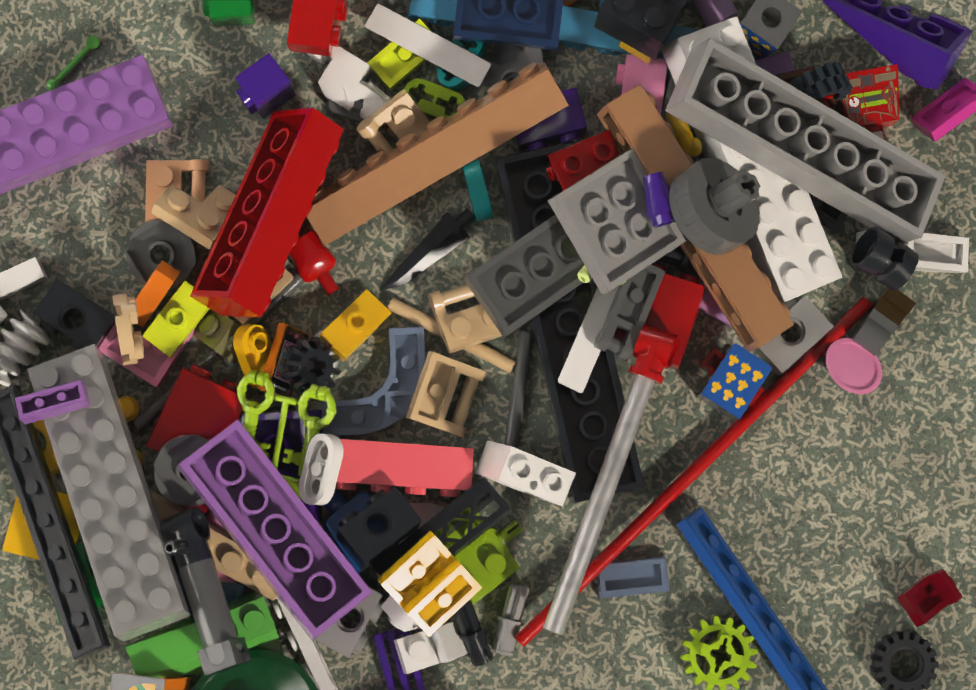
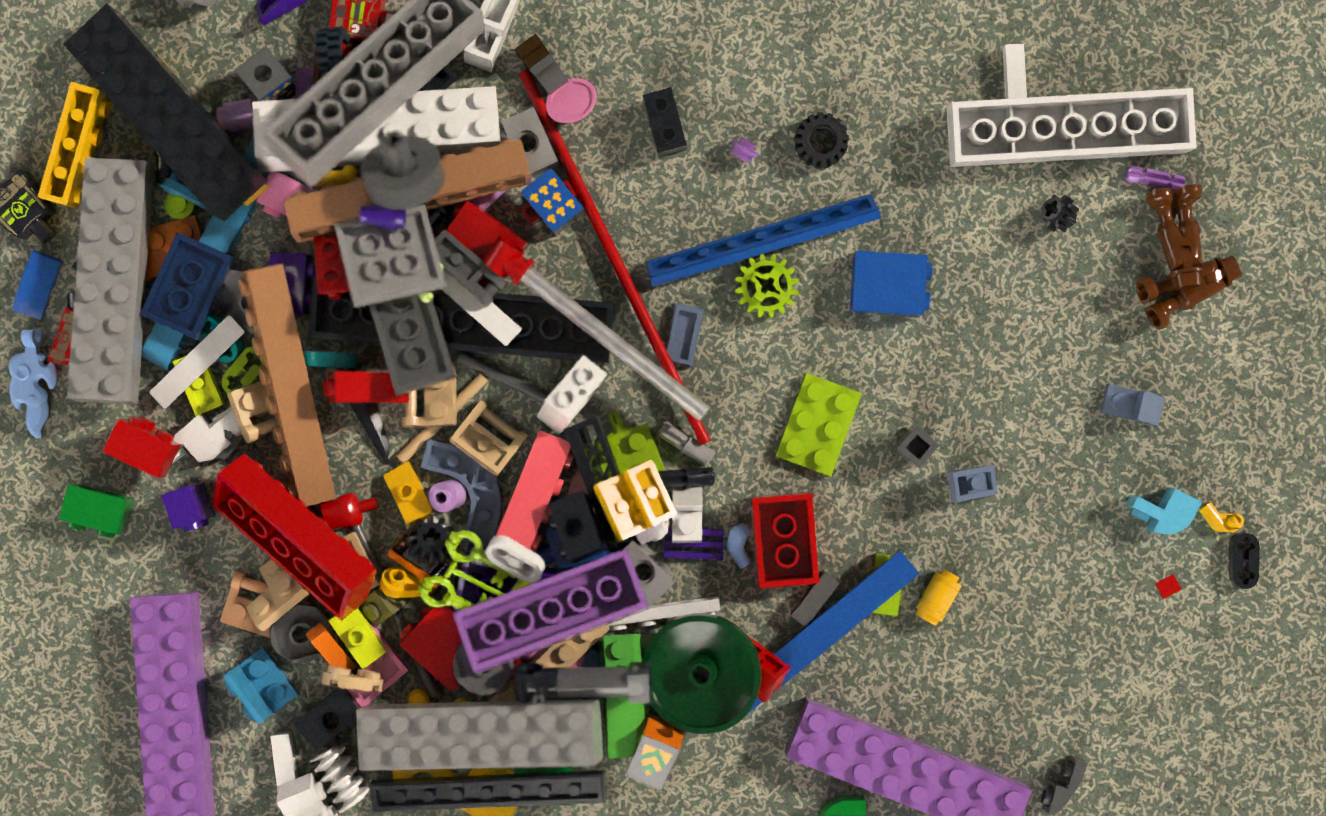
camera: 65 degrees left, 5 degrees up
(52, 402) = (392, 758): medium lavender piece -> none
(88, 228) = (260, 685): none -> dark azure bracket
(93, 43) = (108, 635): bright green hinge -> none
(373, 375) = (447, 495): none -> lavender brick
(458, 235) = (360, 388): none -> red brick
(864, 578) = (743, 149): none -> medium lavender plate
(865, 478) = (664, 122): none -> black brick
(884, 258) = (488, 49): black wheel -> none
(929, 596) = (775, 102): dark red bracket -> none

